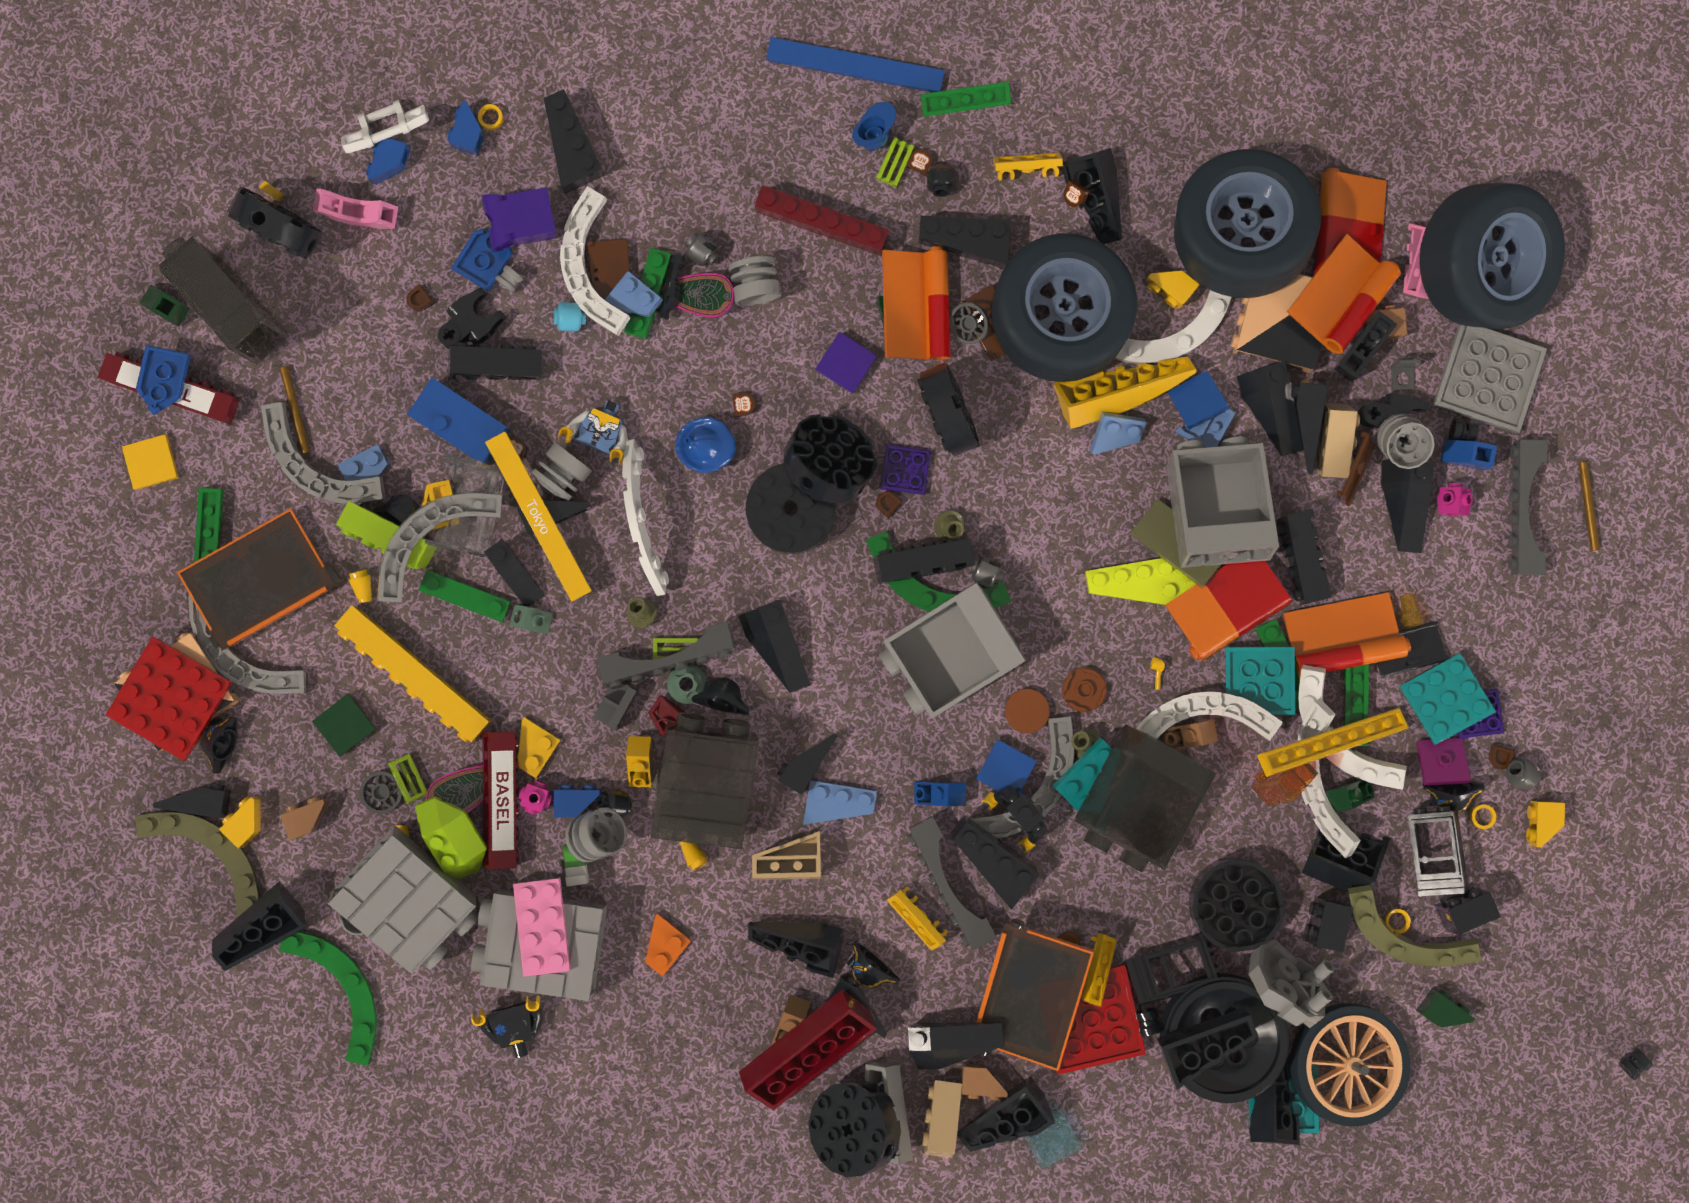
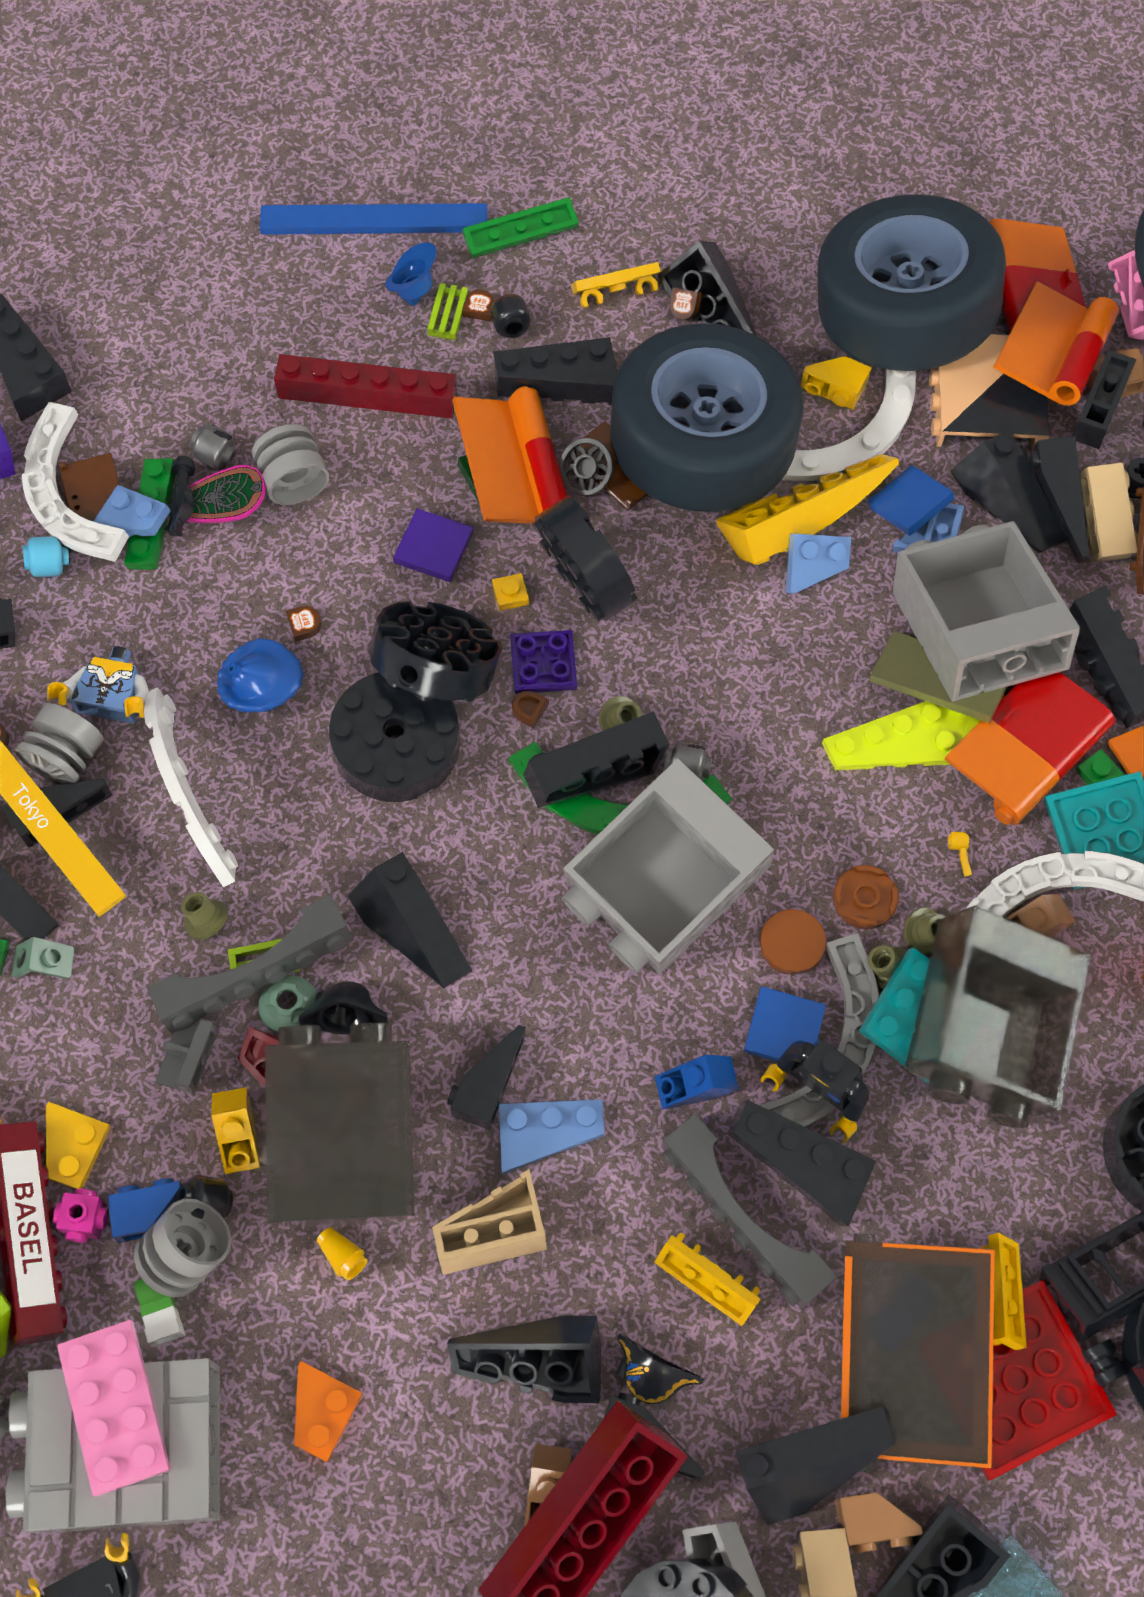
camera: 10 degrees left, 20 degrees down
(893, 410) = (510, 592): none -> yellow plate
(1115, 721) = (921, 929): none -> olive piece

